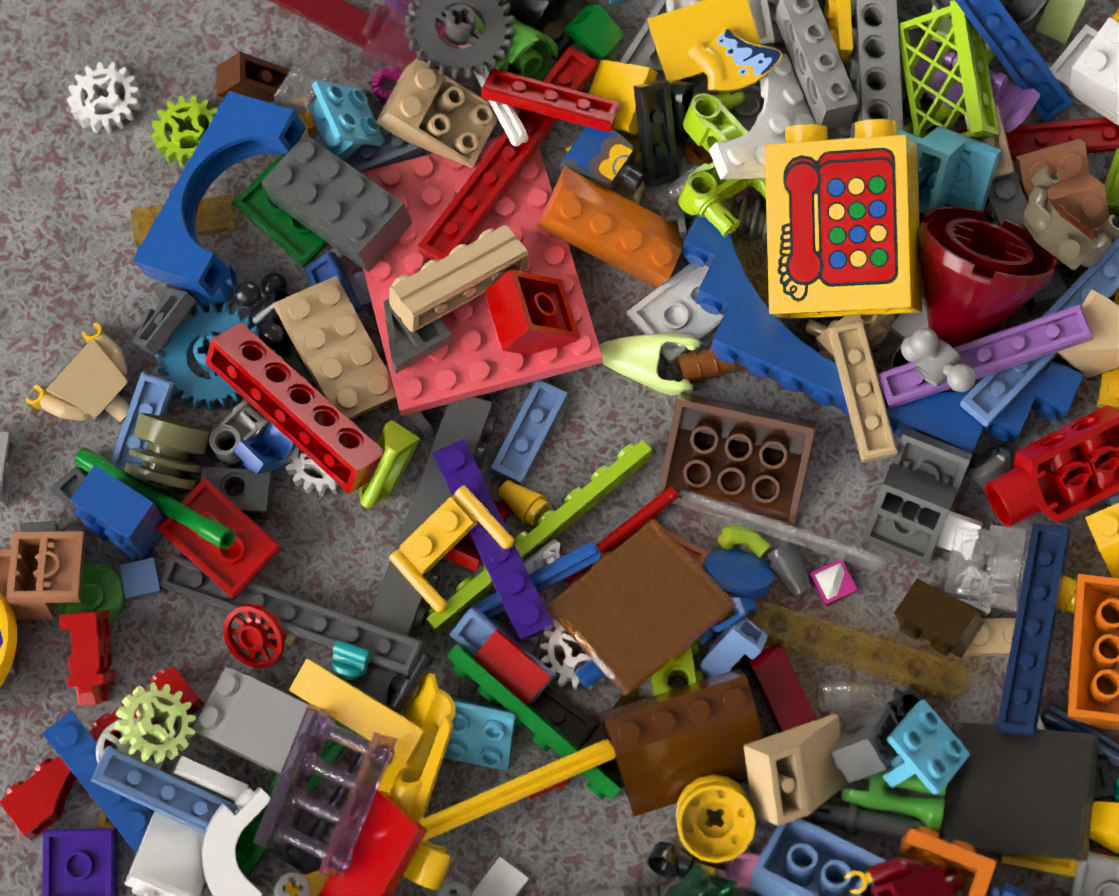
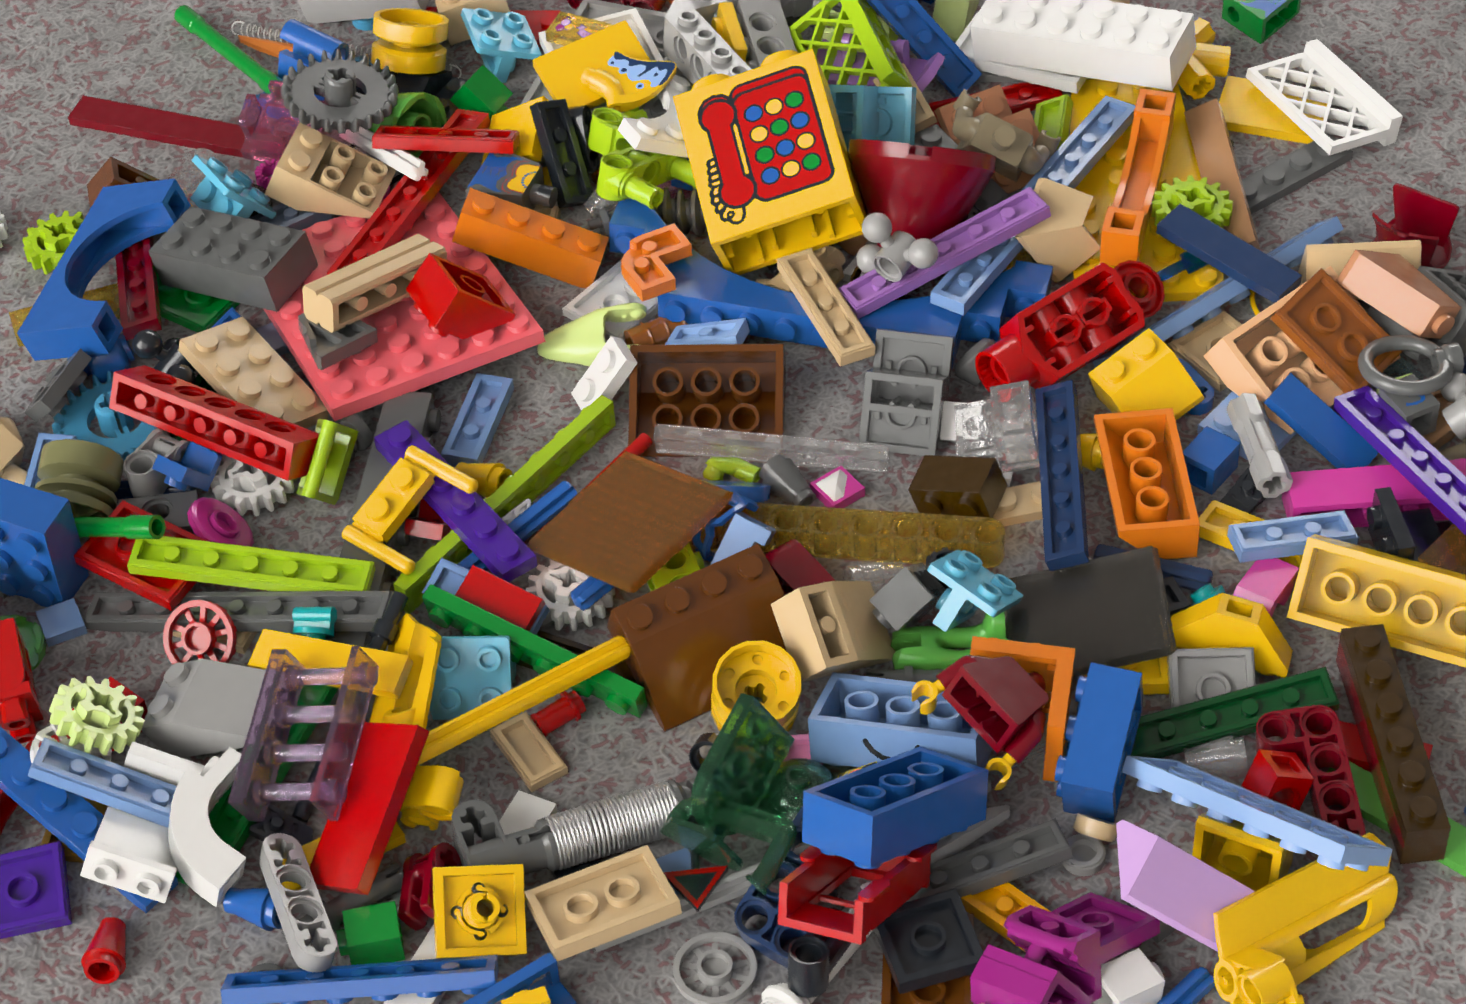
camera: 15 degrees left, 25 degrees down
(247, 214) = (138, 289): none -> dark red plate
(287, 512) = (219, 522): none -> dark pink wheel
(310, 582) = (248, 566): none -> lime tile
(518, 821) = (528, 751): none -> tan tile
(649, 416) = (605, 373): none -> white plate
(705, 307) = (646, 260): none -> orange plate
(750, 390) = (715, 332): none -> light blue plate

